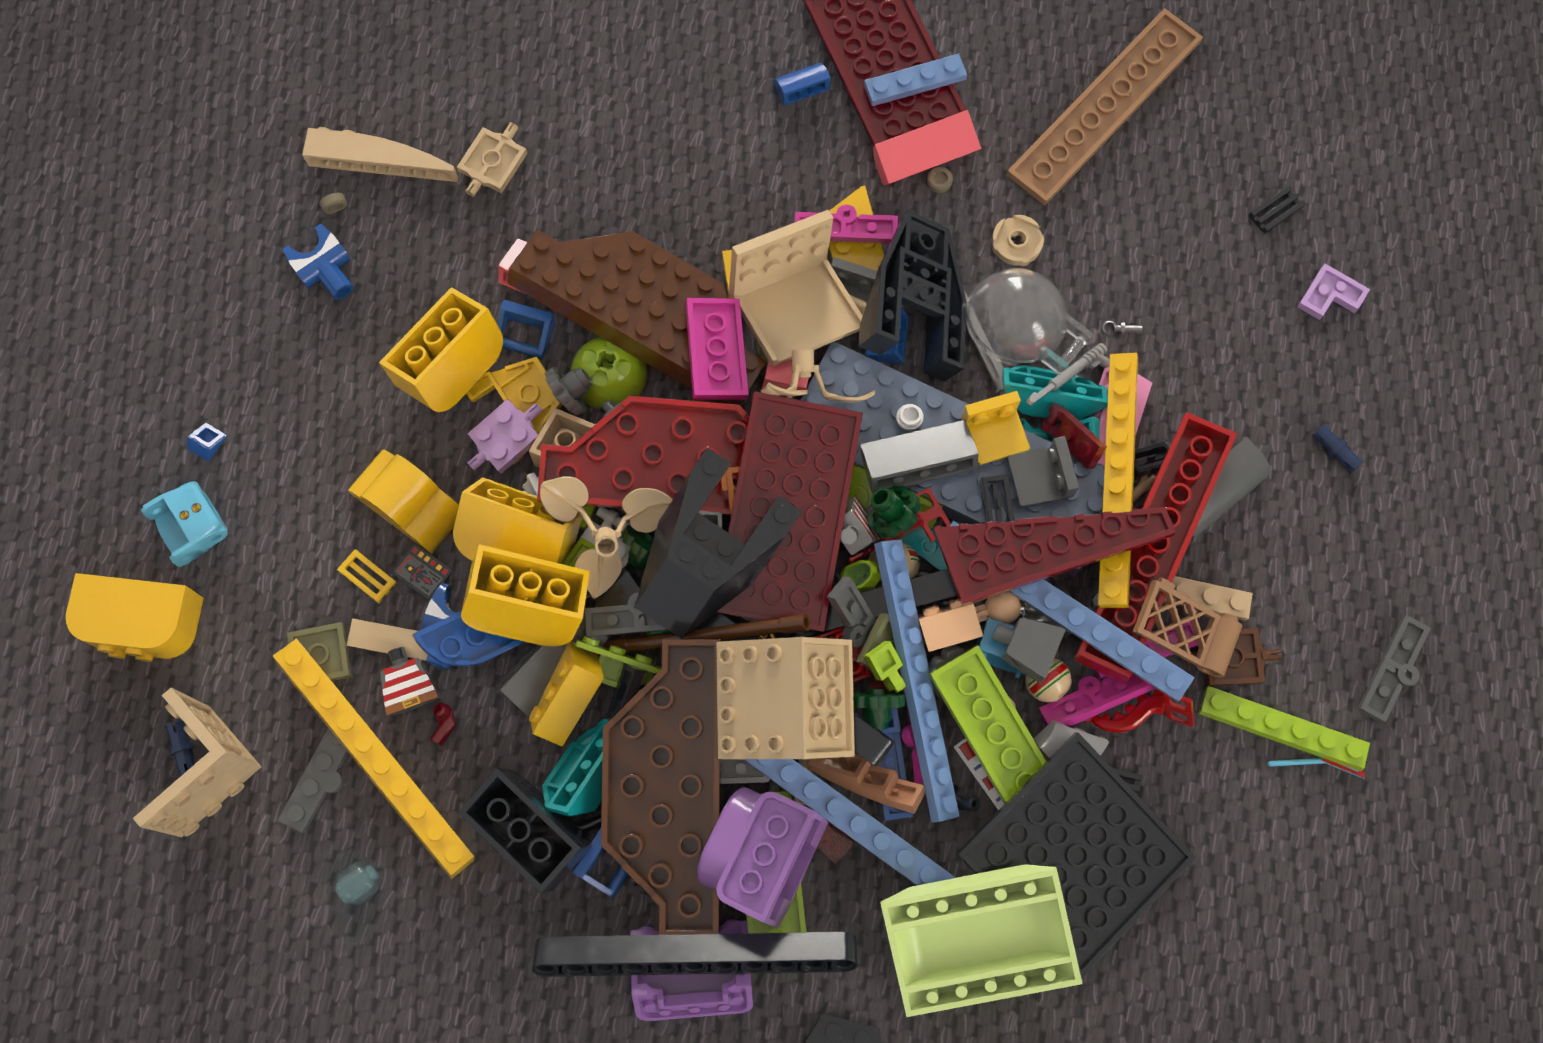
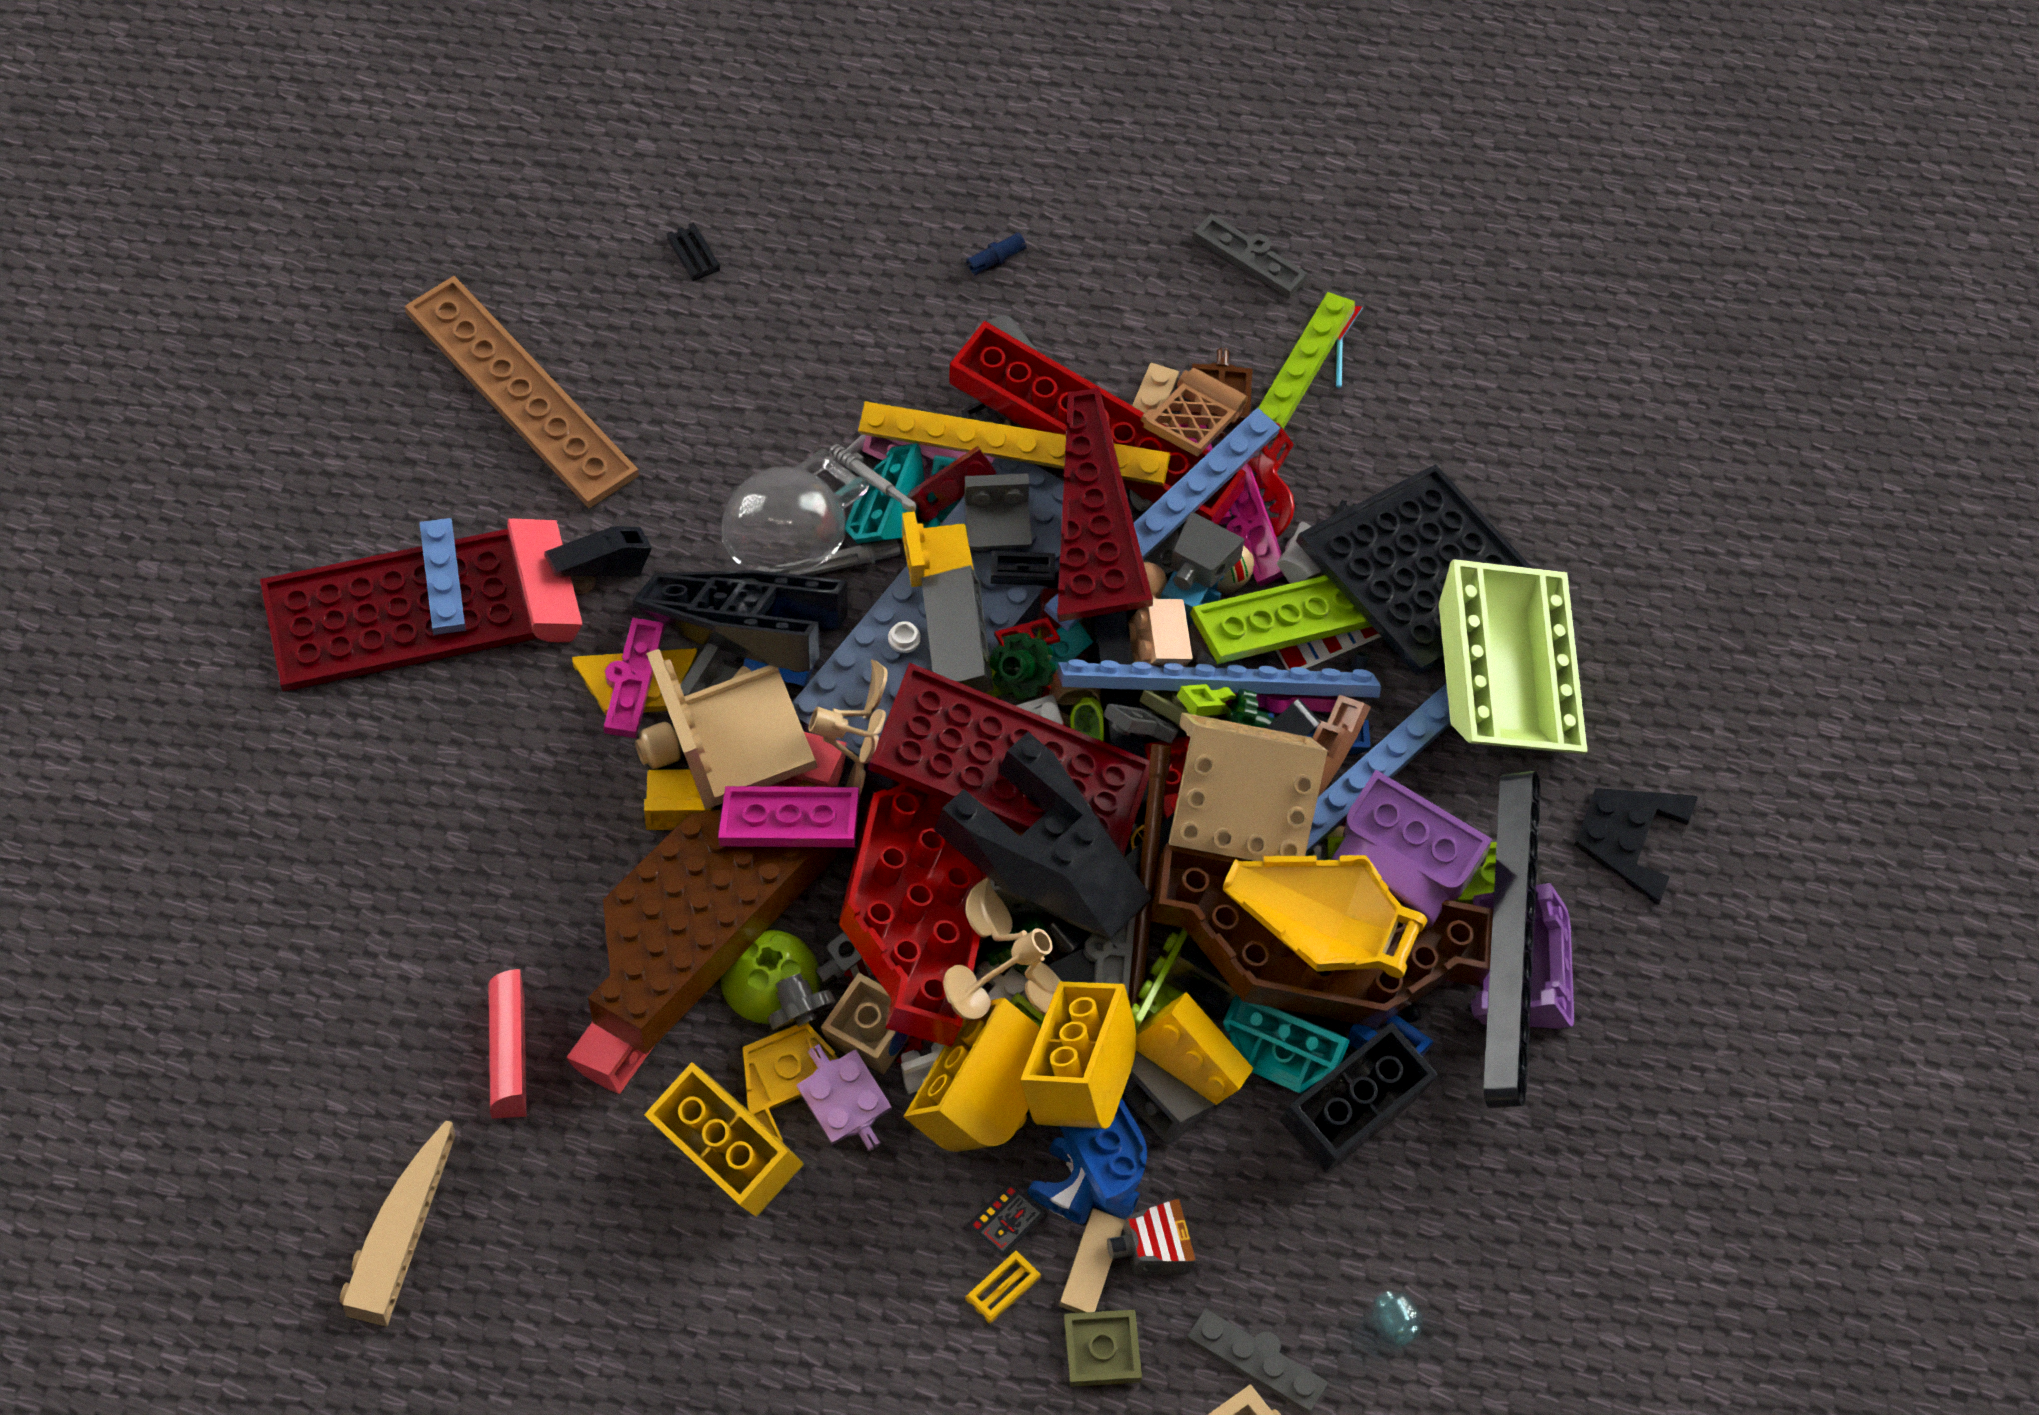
camera: 85 degrees left, 15 degrees down
(322, 264) = (551, 1308): blue connector -> none
(333, 203) = (460, 1289): dark tan tile -> none
(374, 758) = (1245, 1280): yellow brick -> none
(406, 499) = (904, 1226): yellow brick -> none
(446, 723) = (1207, 1206): dark red arm -> none
(492, 160) = (437, 1082): tan plate -> none
(522, 199) = (507, 1045): none -> coral brick
(528, 316) = (683, 1049): blue tile -> none
(672, 781) = (1327, 910): none -> yellow windscreen
(802, 83) = (407, 705): blue brick -> none
(953, 183) = (605, 553): none -> black slope
(1013, 227) = (684, 524): tan plate -> none
(1121, 328) = (813, 426): flat silver hand -> none
(1332, 286) = (803, 221): lavender plate -> none

